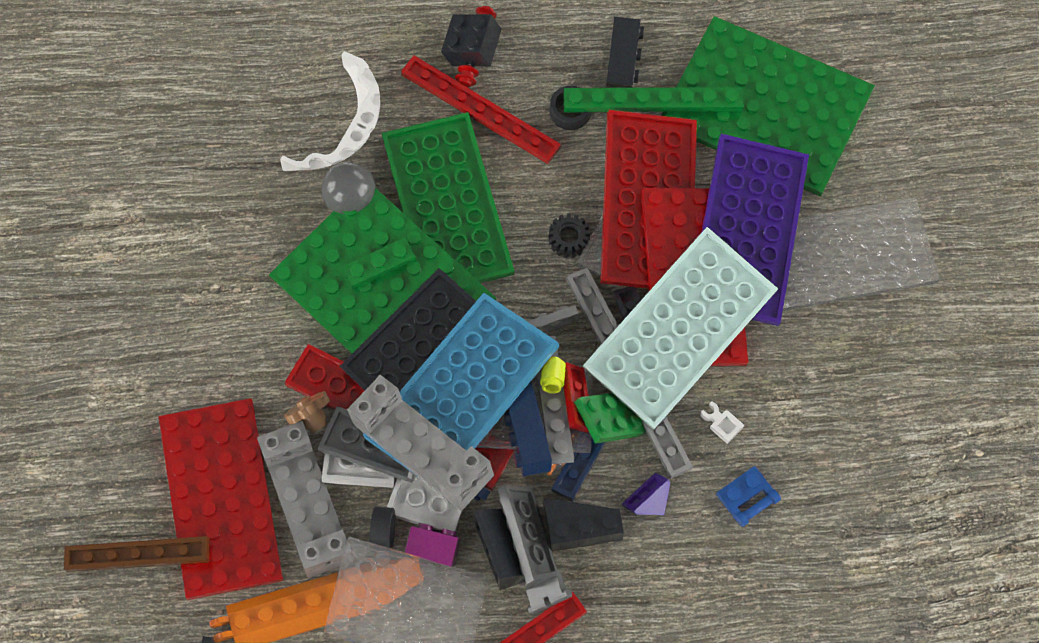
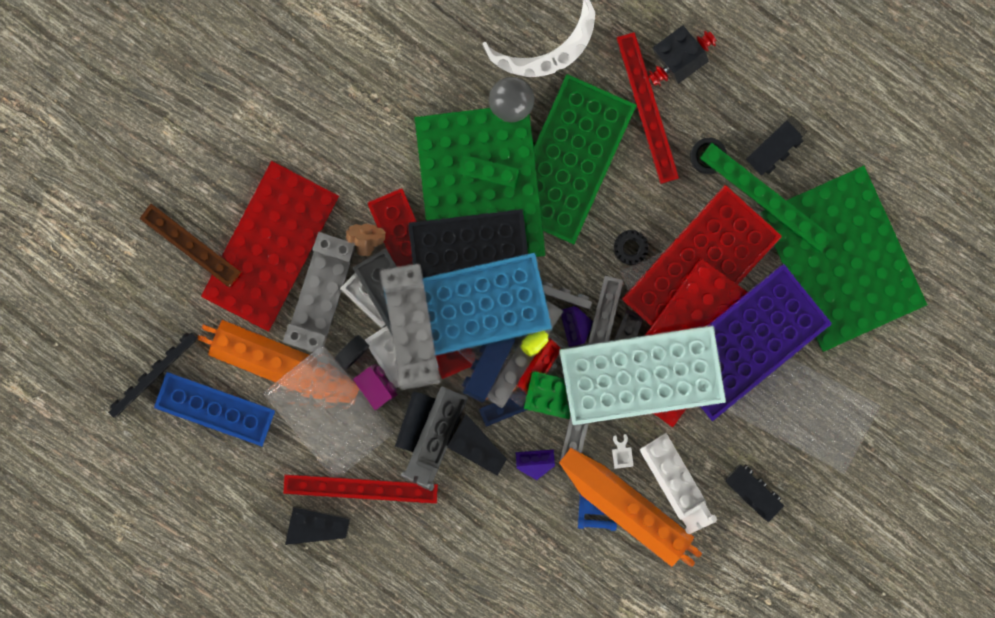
camera: 40 degrees right, 20 degrees up
(576, 342) = (575, 325): none -> dark purple slope
(777, 468) = (629, 508): none -> orange hinge
(804, 408) = (677, 484): none -> white hinge
(877, 359) = (754, 492): none -> black wedge

